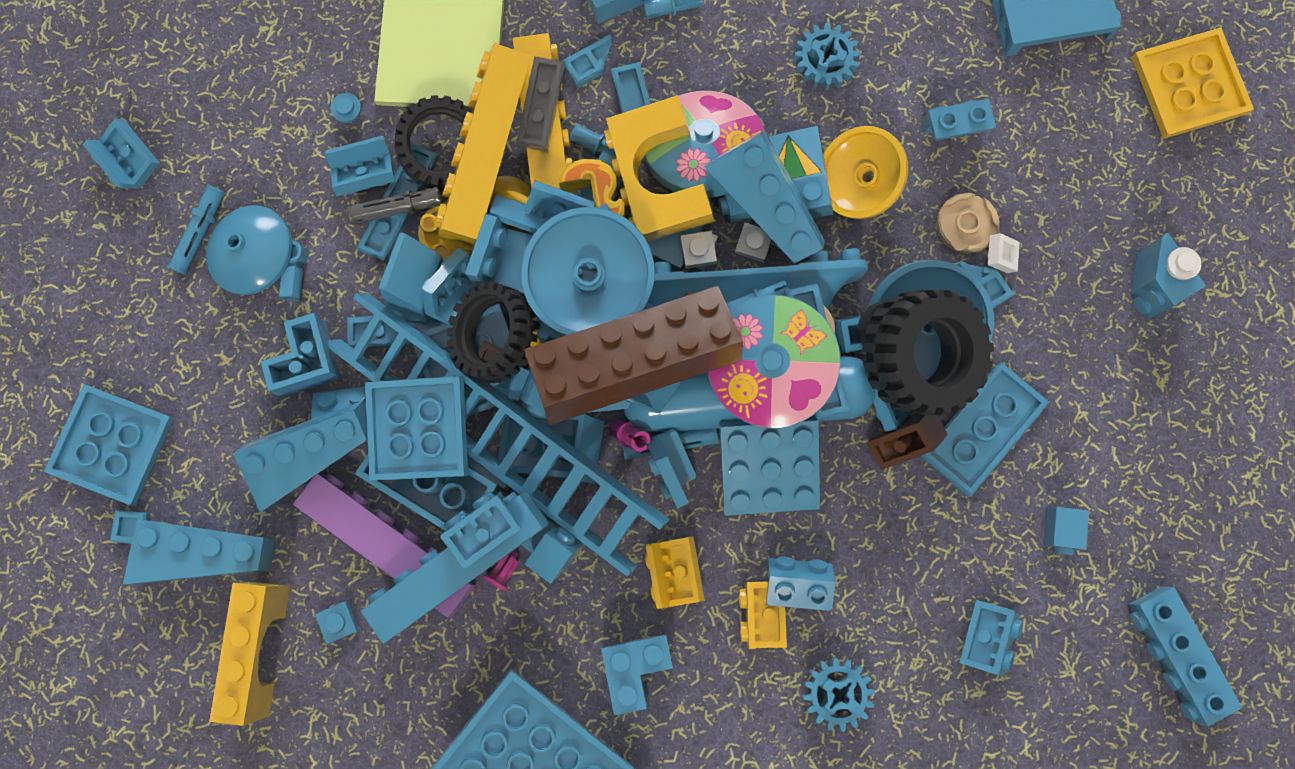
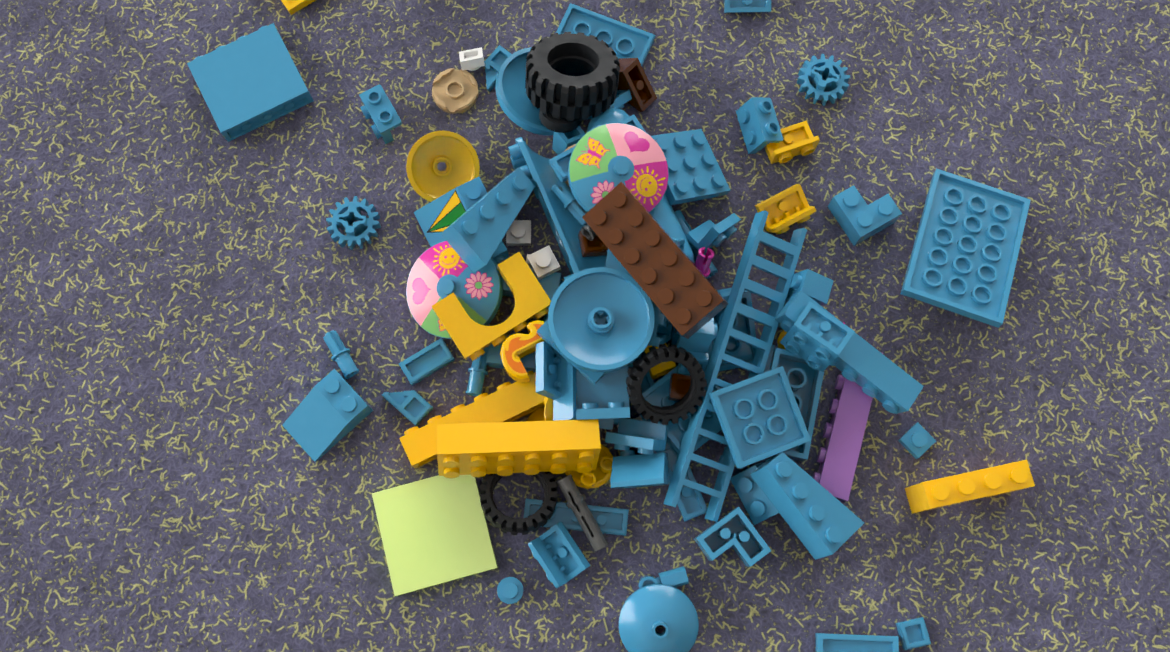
camera: 110 degrees left, 5 degrees down
(185, 552) = (913, 569): dark azure wedge -> none
(540, 104) = (475, 414): dark grey tile -> none

